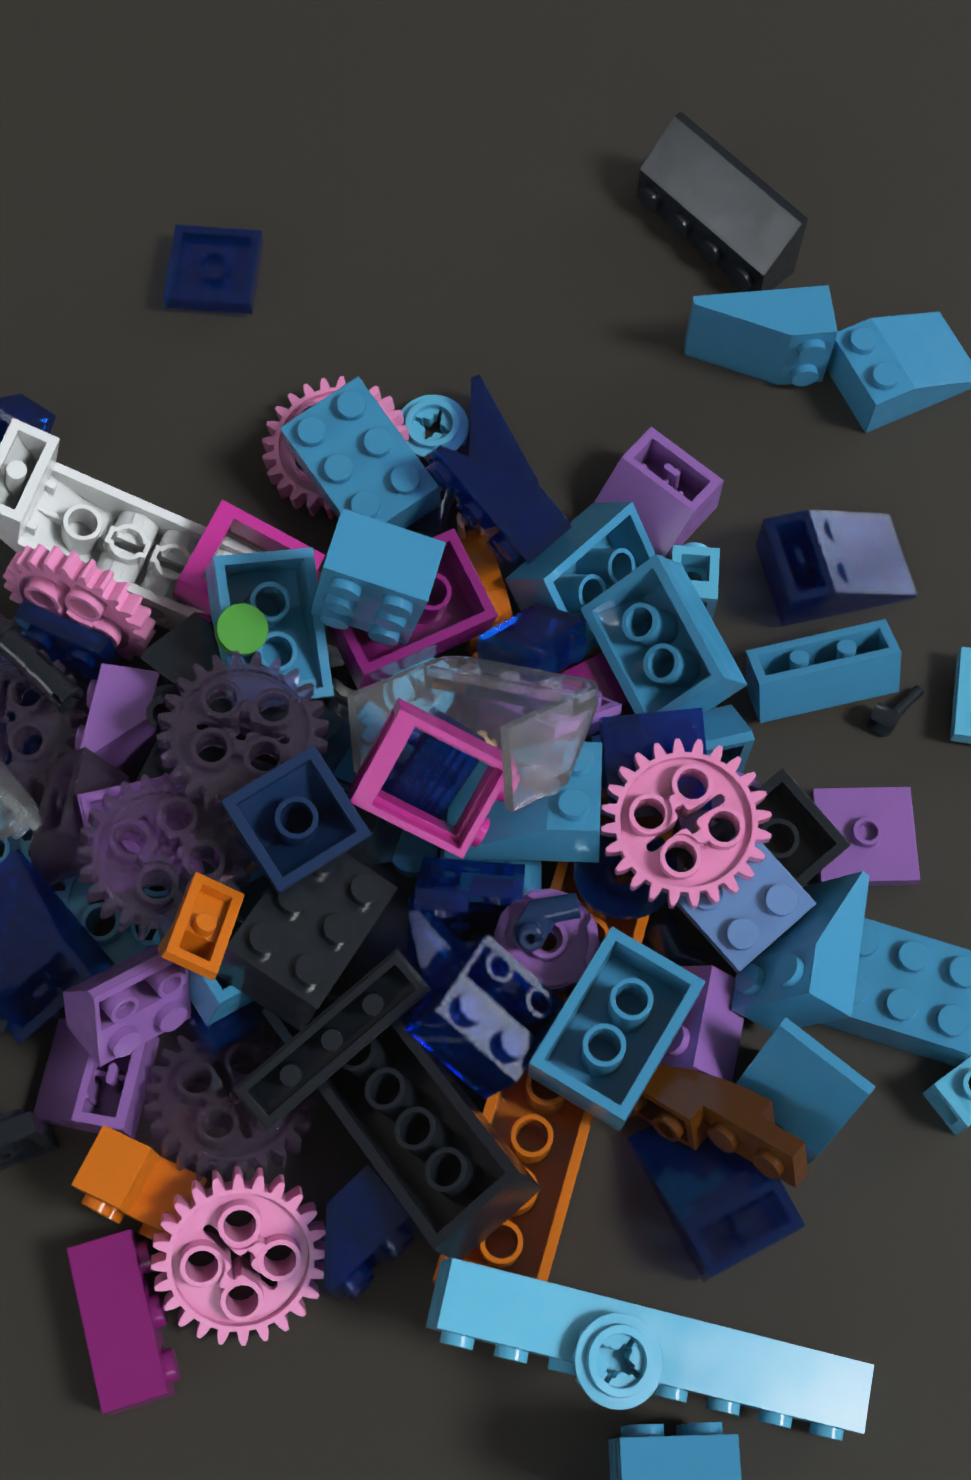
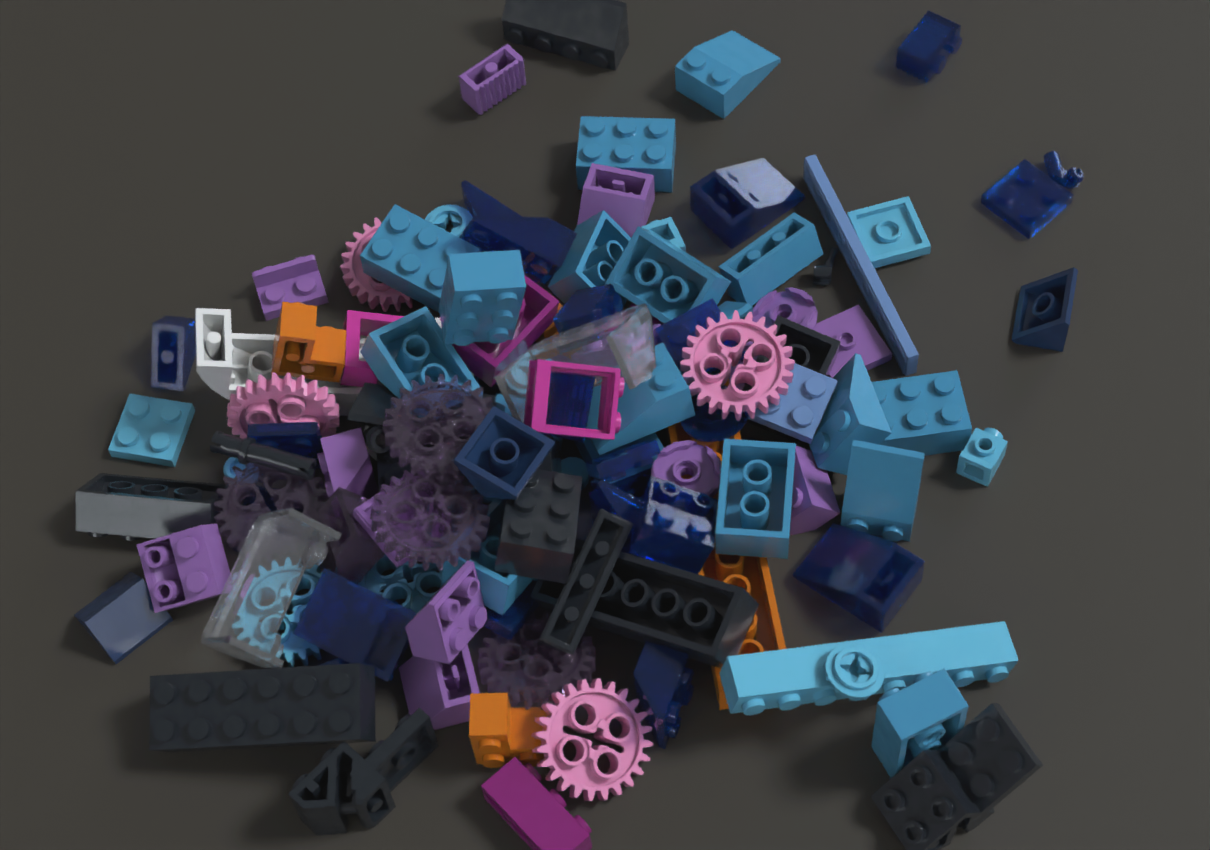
camera: 20 degrees left, 10 degrees down
(141, 530) = (306, 348): none -> orange brick
(193, 422) = (289, 282): none -> medium lavender bracket
(202, 926) = (480, 540): orange slope -> none
(213, 269) = (252, 191): clear blue plate -> none
(241, 629) = (408, 367): bright green tile -> none
(539, 918) = (676, 457): dark blue arm -> none
(588, 247) = (492, 79): none -> medium lavender brick
(696, 1106) = (849, 523): reddish brown slope -> none
(715, 423) = (628, 144): none -> dark azure brick
(765, 333) = (633, 83): dark azure slope -> none
(804, 739) = (789, 304): none -> medium lavender plate
(940, 734) = (860, 266): none -> medium blue tile

